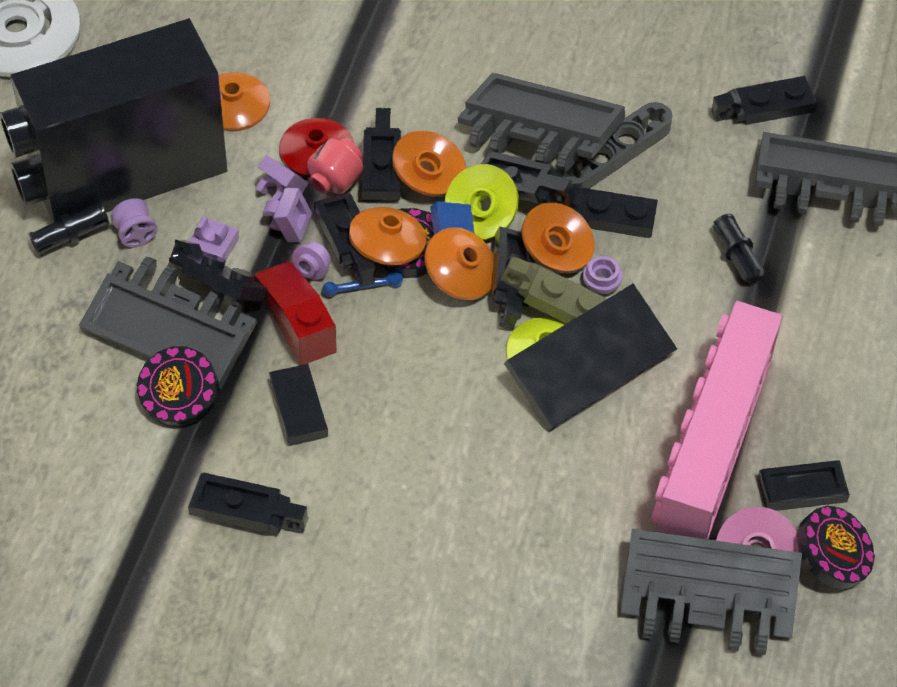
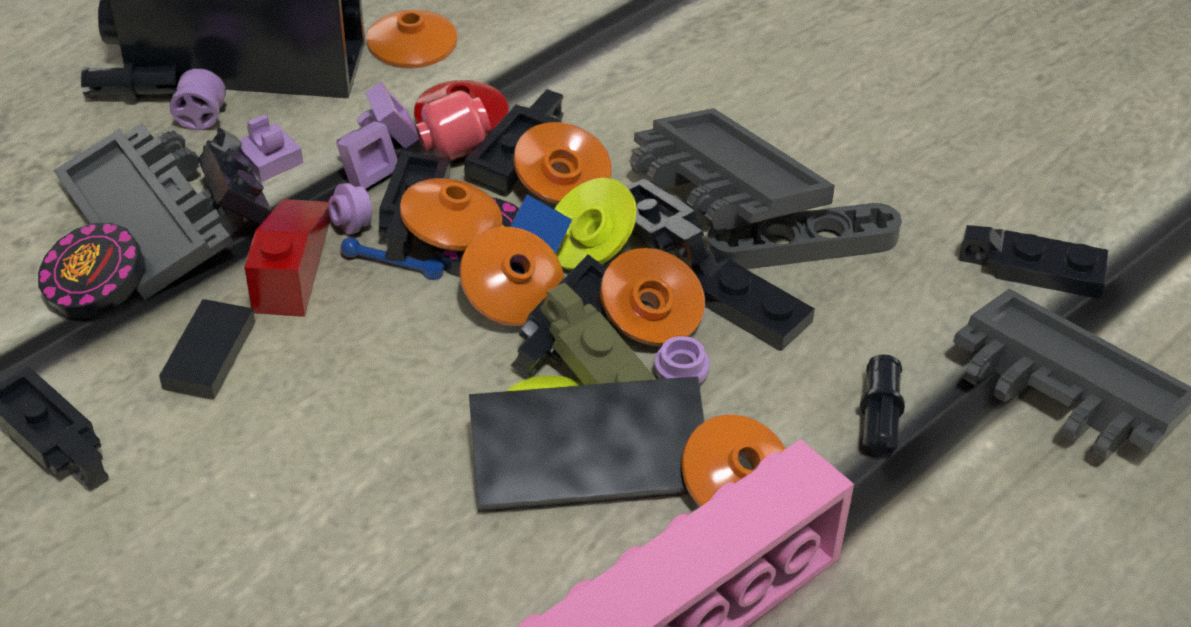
camera: 30 degrees right, 10 degrees down
(683, 331) = (713, 452): none -> orange dish

